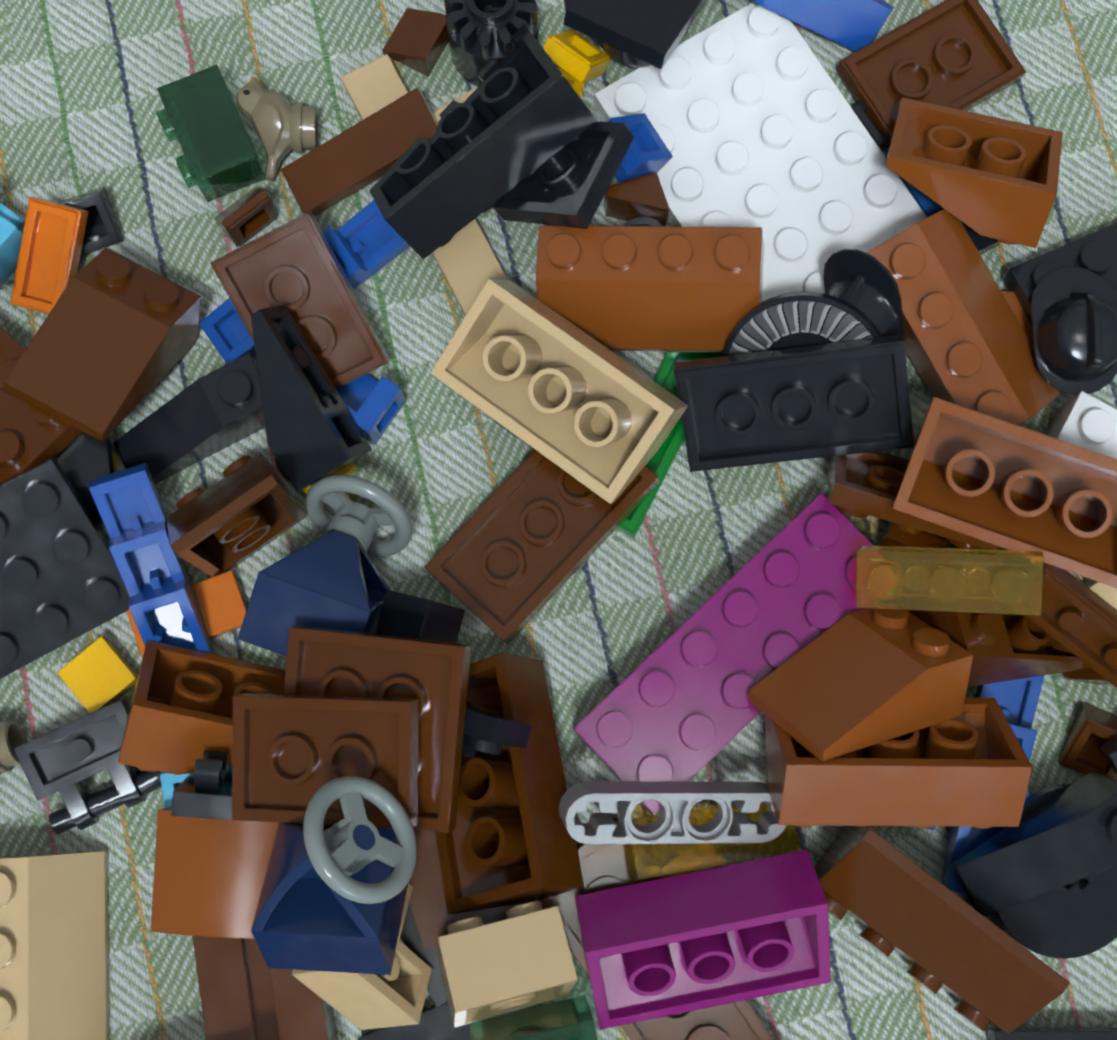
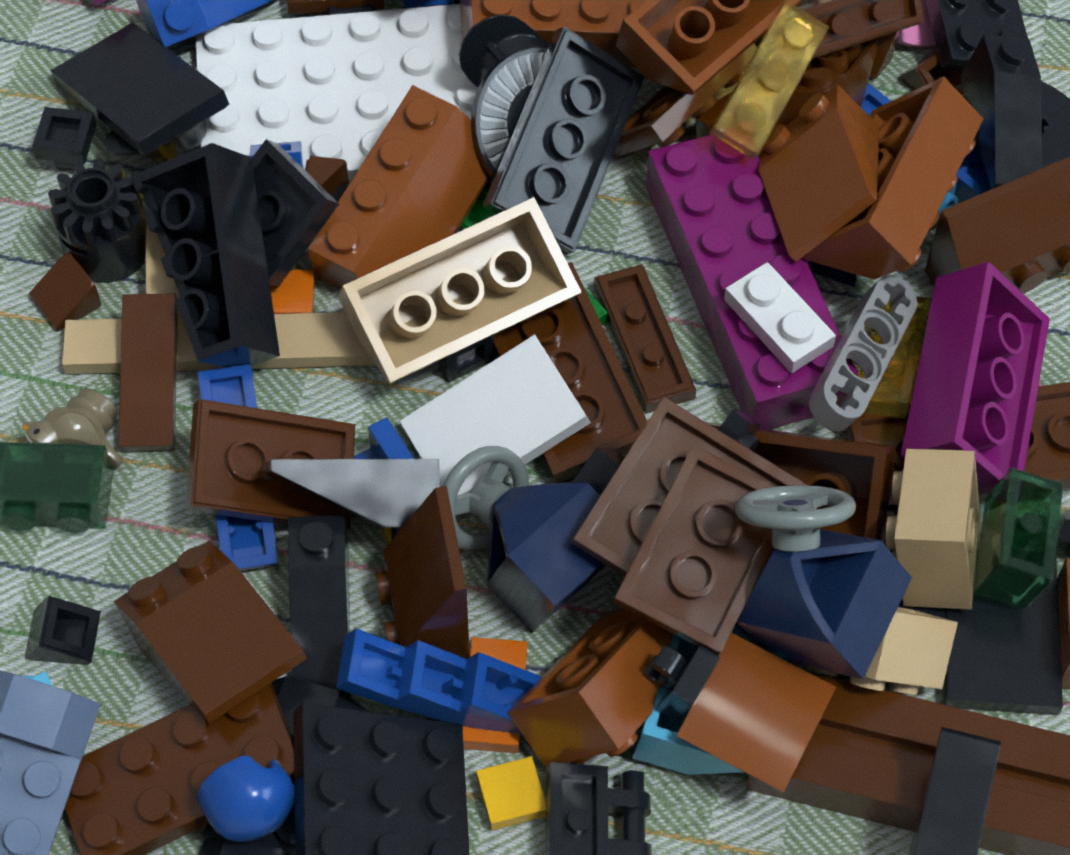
camera: 65 degrees left, 20 degrees down
(48, 253) = (84, 666): orange tile -> none
(247, 216) = (140, 493): reddish brown slope -> none
(457, 487) = (507, 404): none -> white tile
(509, 239) = (295, 293): none -> orange tile
(627, 581) = (644, 337): none -> reddish brown tile
(670, 711) = (779, 317): none -> white plate

